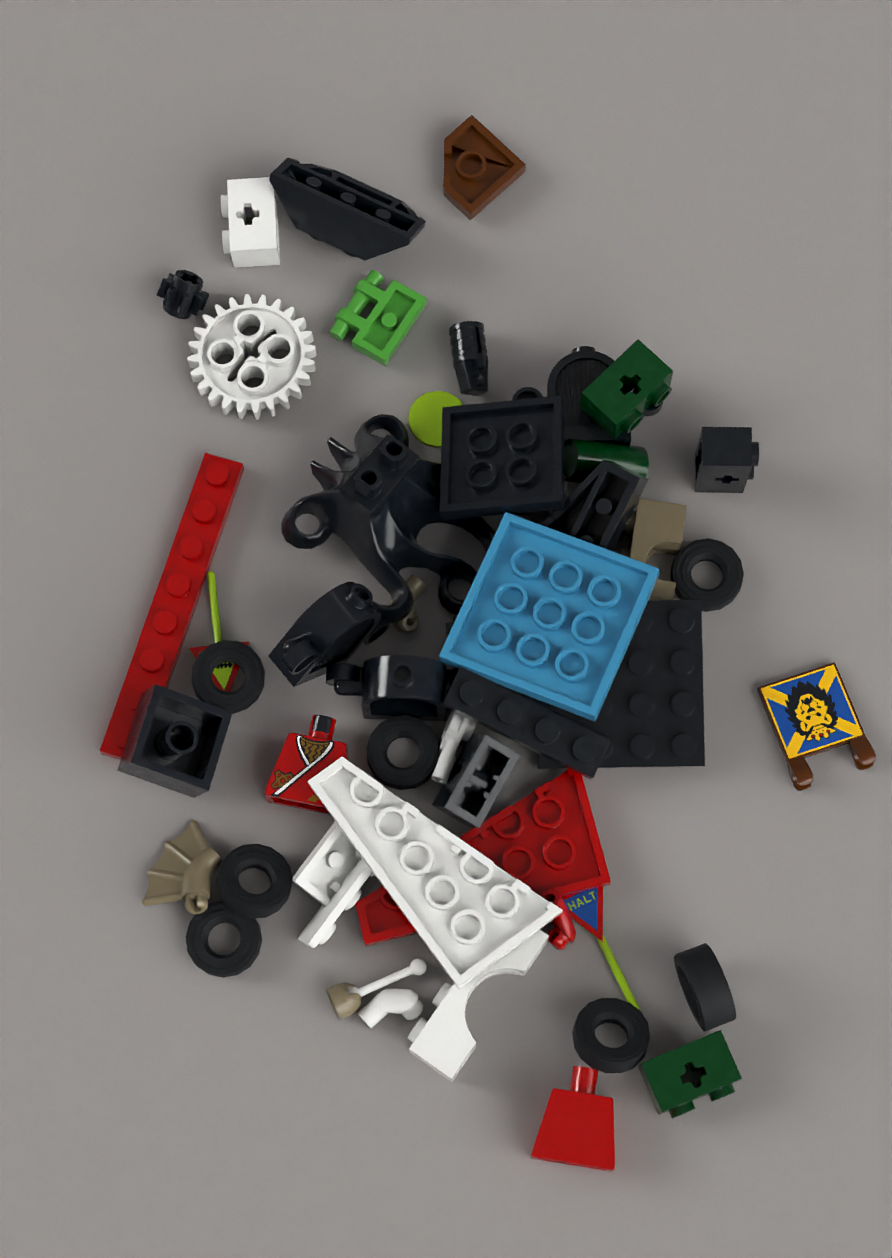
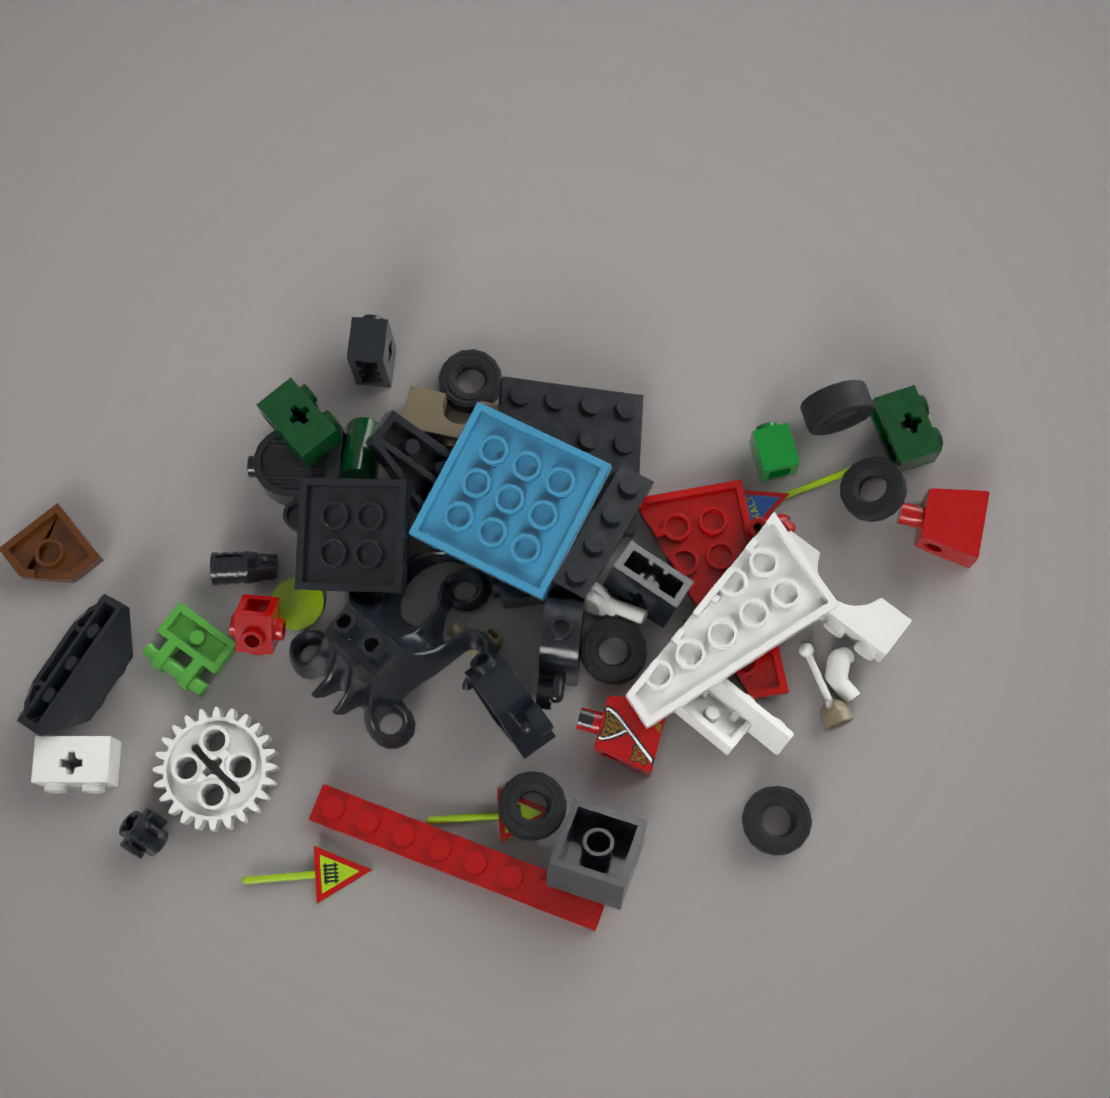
camera: 85 degrees left, 0 degrees up
(153, 482) = (330, 874): none -> piece
(184, 871) = (714, 854): dark tan arm -> none
(250, 904) = (737, 808): black tyre -> none
(405, 377) = (257, 624): none -> red brick
(647, 916) = (773, 451): none -> green brick
(814, 716) = (603, 308): flag -> none

